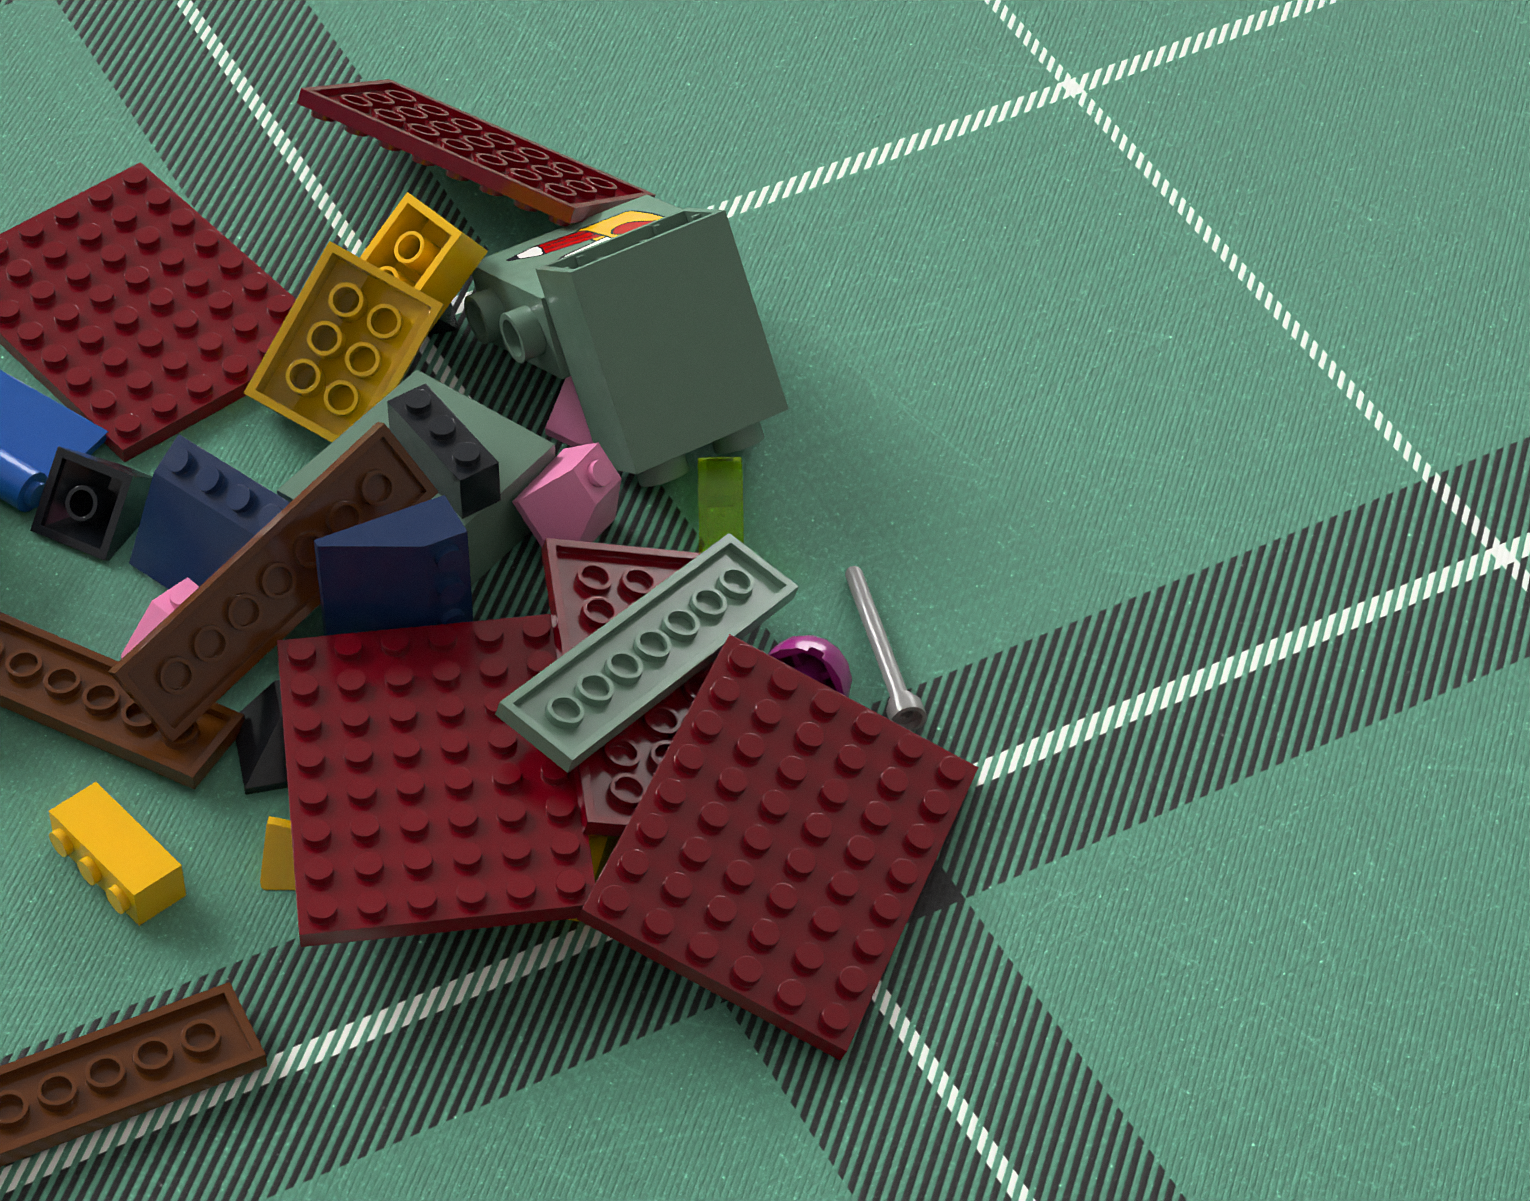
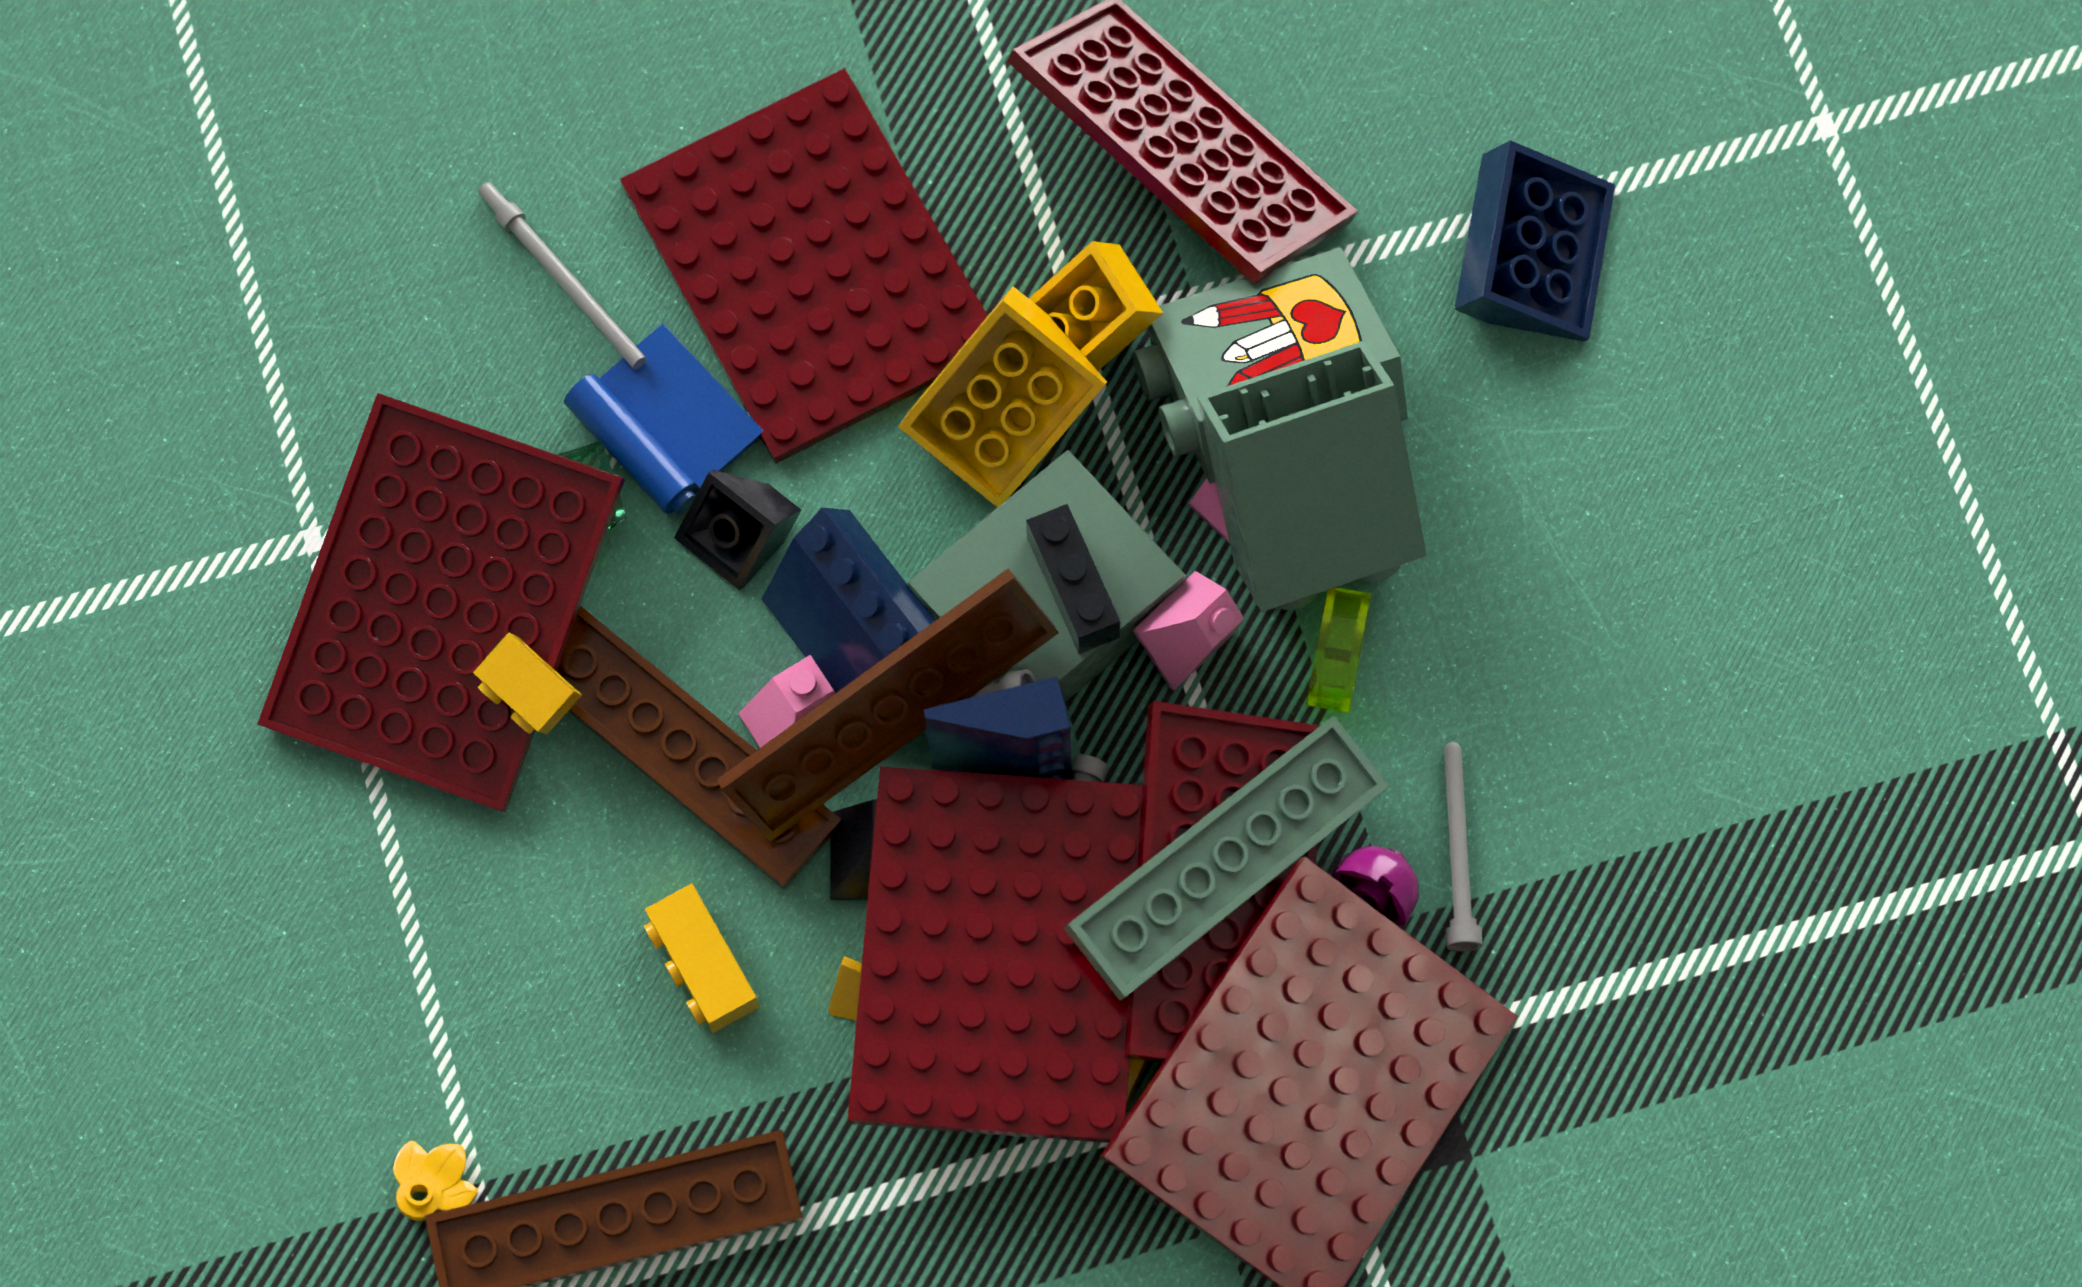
camera: 15 degrees right, 25 degrees up
(827, 192) = (1534, 243): none -> dark blue slope

